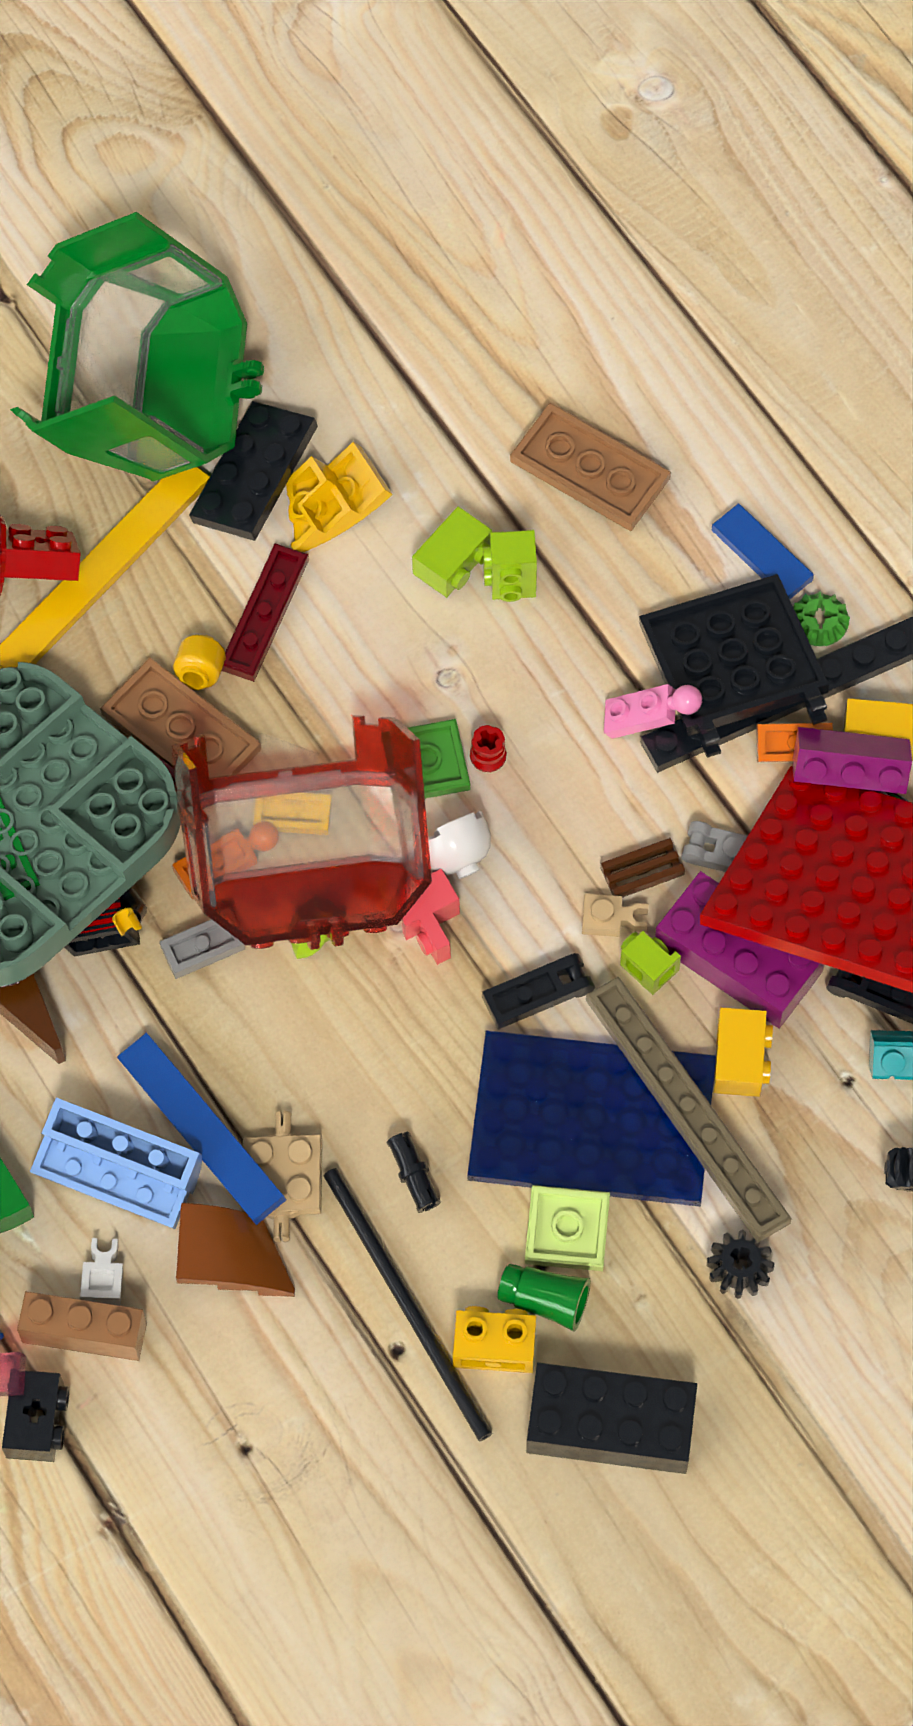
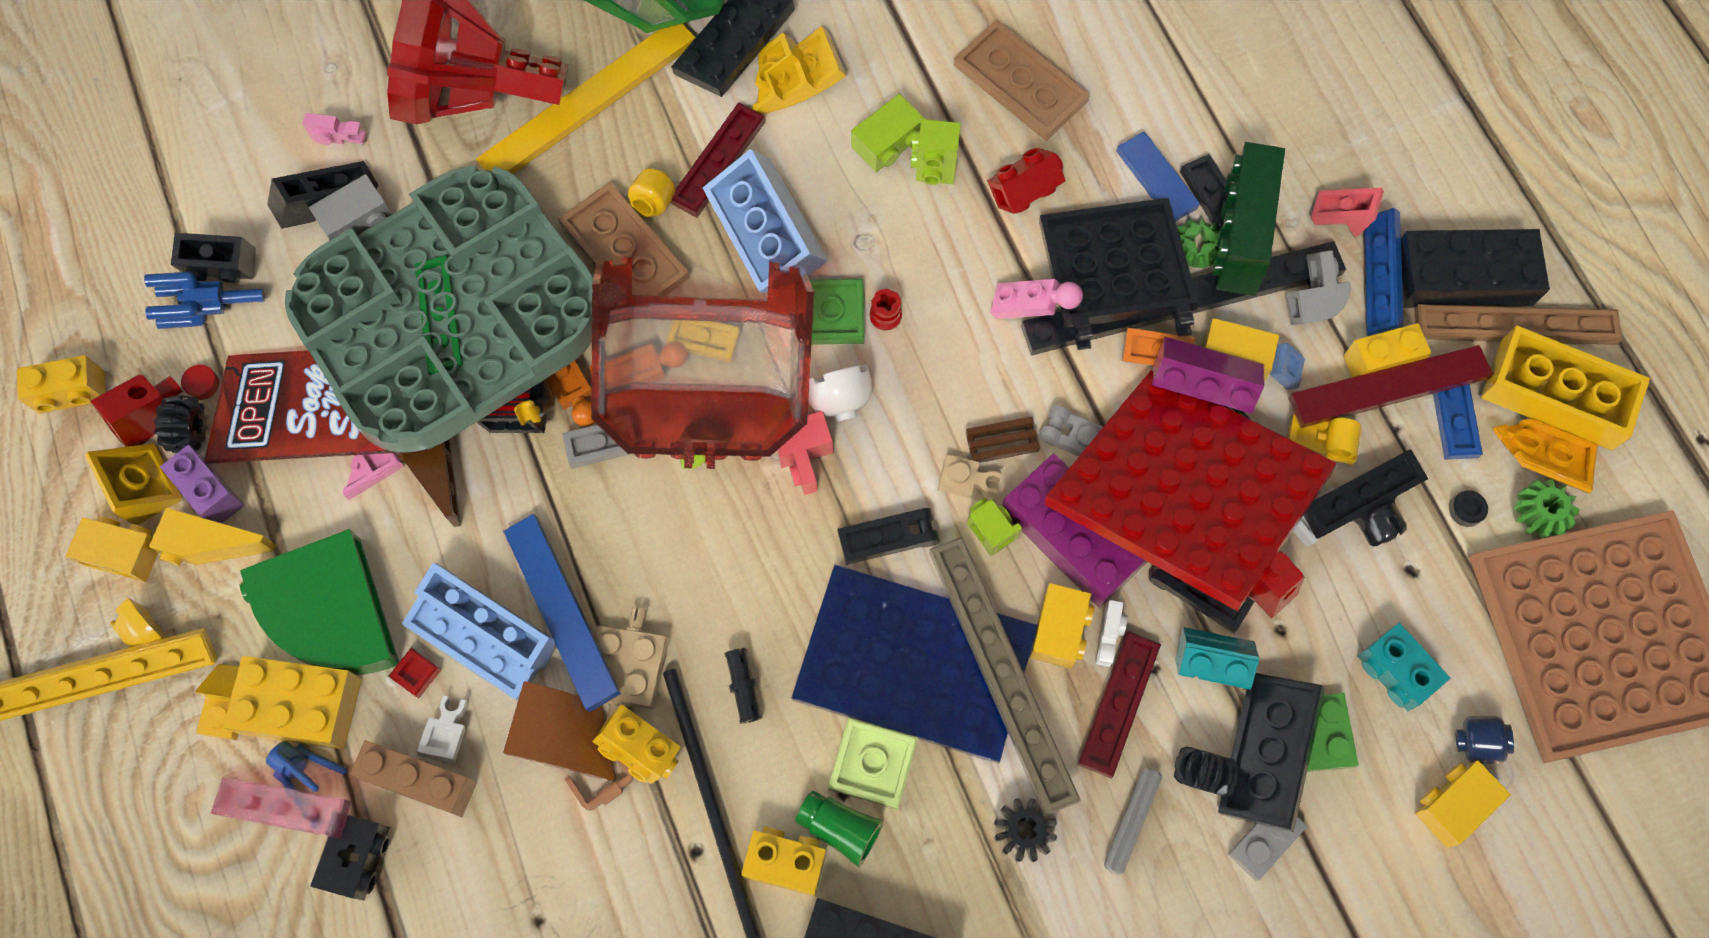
camera: 10 degrees right, 5 degrees up
(53, 1222) = (414, 673): none -> red tile
(159, 894) = (572, 390): none -> orange plate
(292, 1307) = (604, 796): none -> nougat piece
(315, 1248) = (637, 746): none -> yellow brick
(331, 671) = (762, 218): none -> light blue slope
(617, 580) = (1026, 180): none -> red brick
(795, 1041) = (1112, 625): none -> white plate
(817, 1123) = (1119, 704): none -> dark red tile
(834, 568) = (1207, 186): none -> black tile
(851, 1237) = (1133, 821): none -> light grey axle
(867, 584) = (1248, 218): none -> dark green brick

